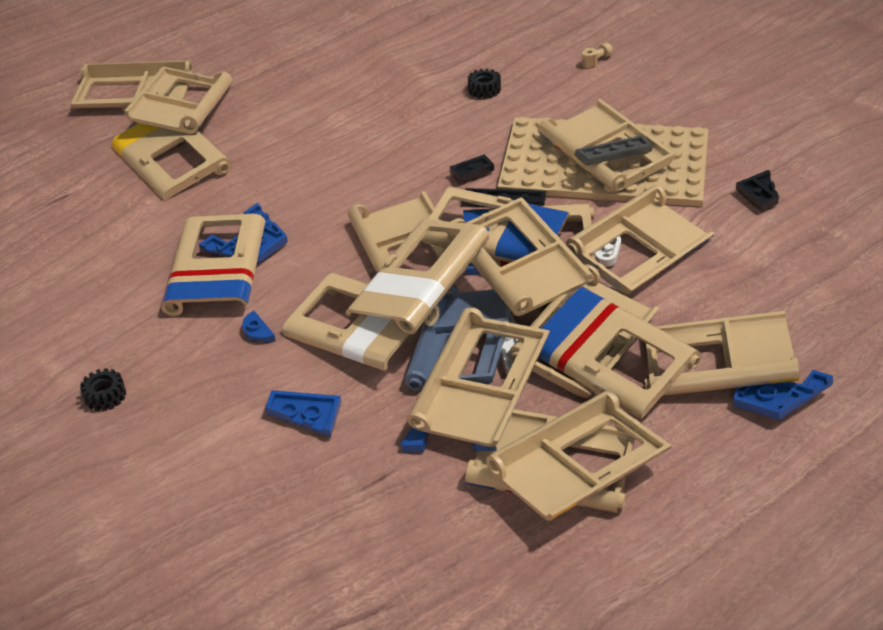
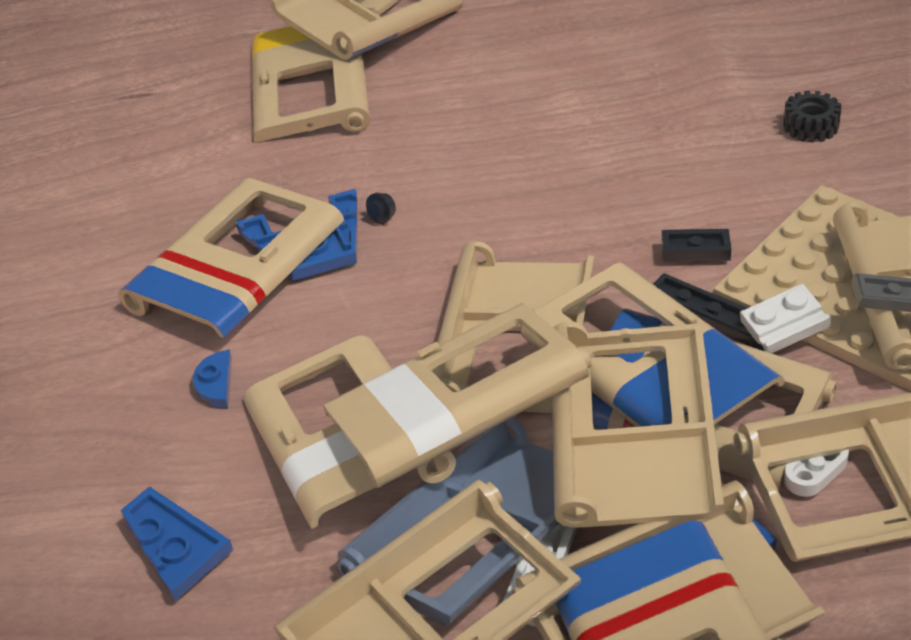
camera: 30 degrees right, 0 degrees up
(279, 208) = (380, 207): none -> black plate
(546, 187) = (785, 319): none -> white plate

